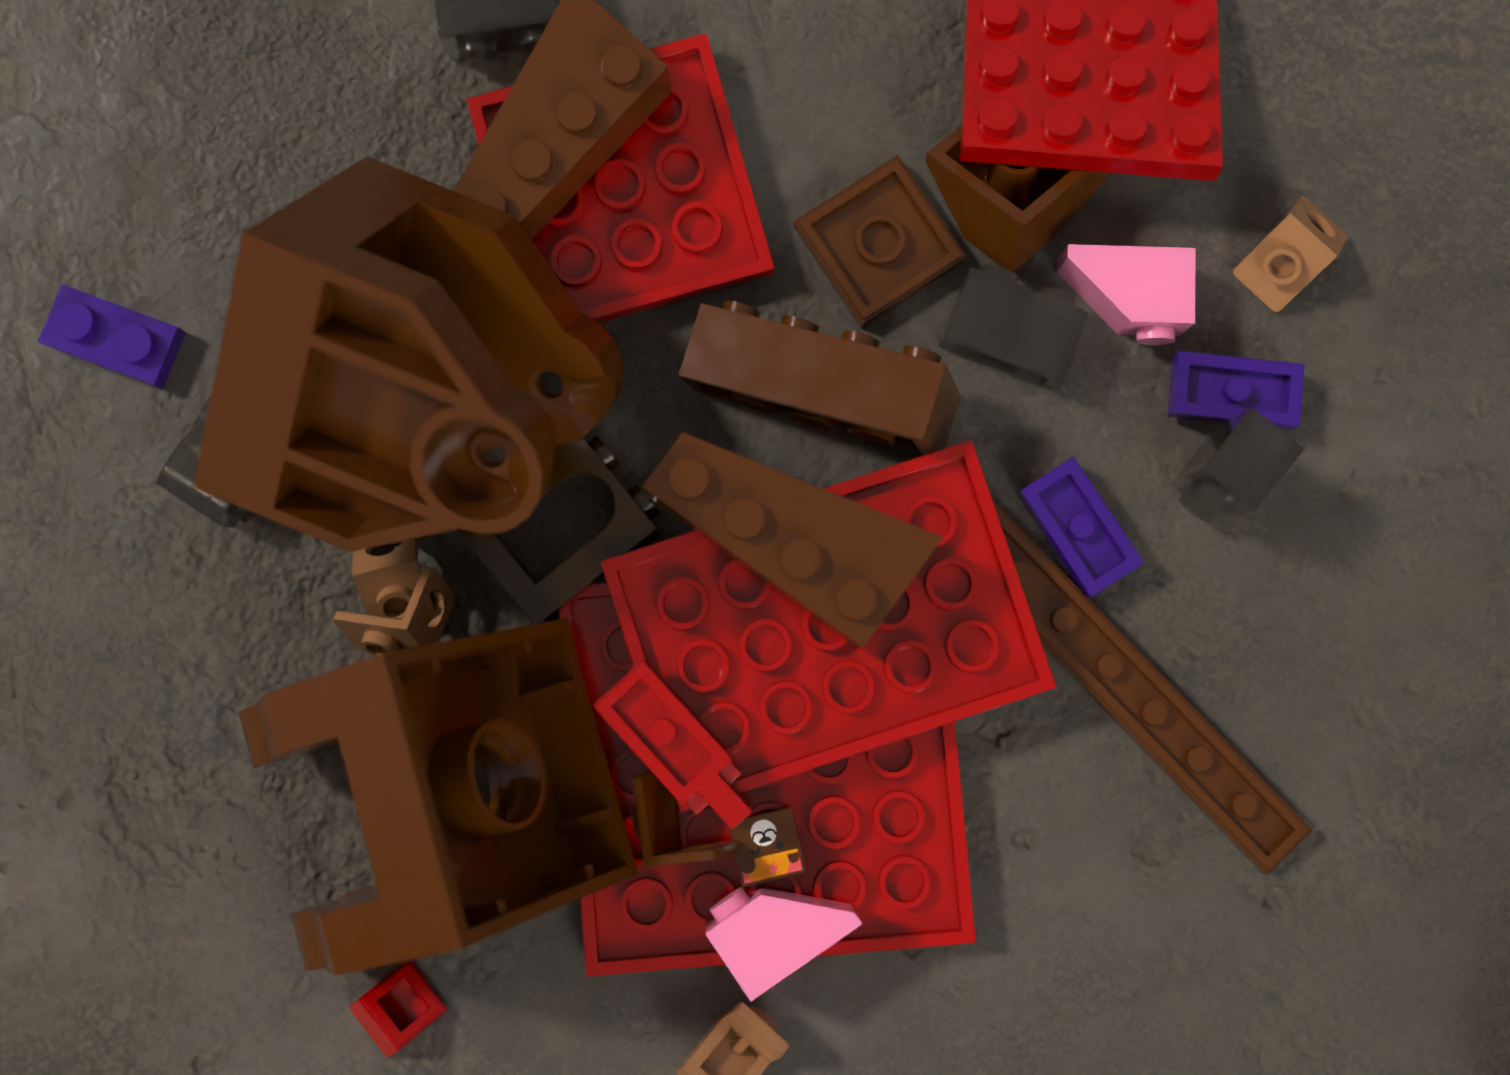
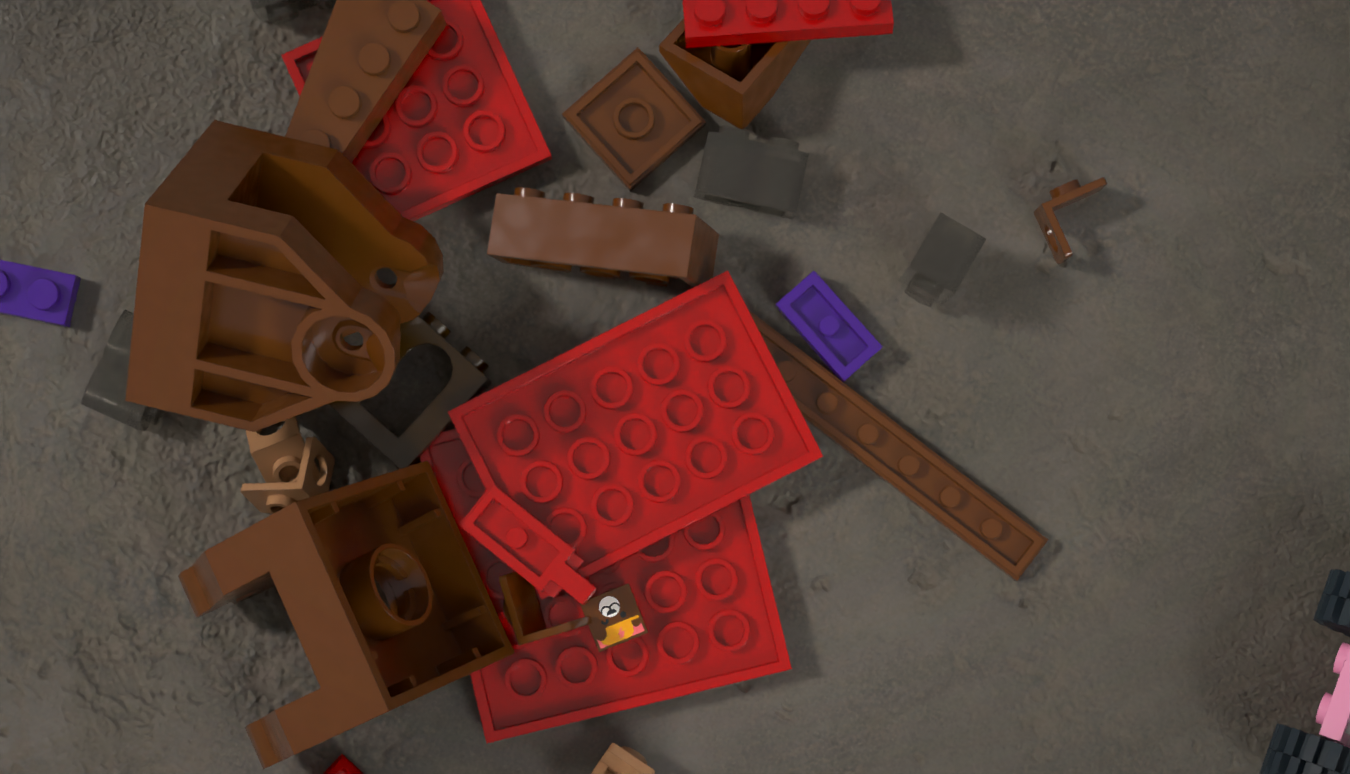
camera: 10 degrees left, 0 degrees up
(774, 933) = (628, 683): bright pink slope -> none
(803, 541) = (601, 369): reddish brown wedge -> none
(1135, 287) = (844, 127): bright pink slope -> none
(1224, 386) = (922, 195): dark purple plate -> none
(1291, 255) = (967, 79): medium nougat bracket -> none
(1368, 434) = (1061, 197): none -> reddish brown bracket

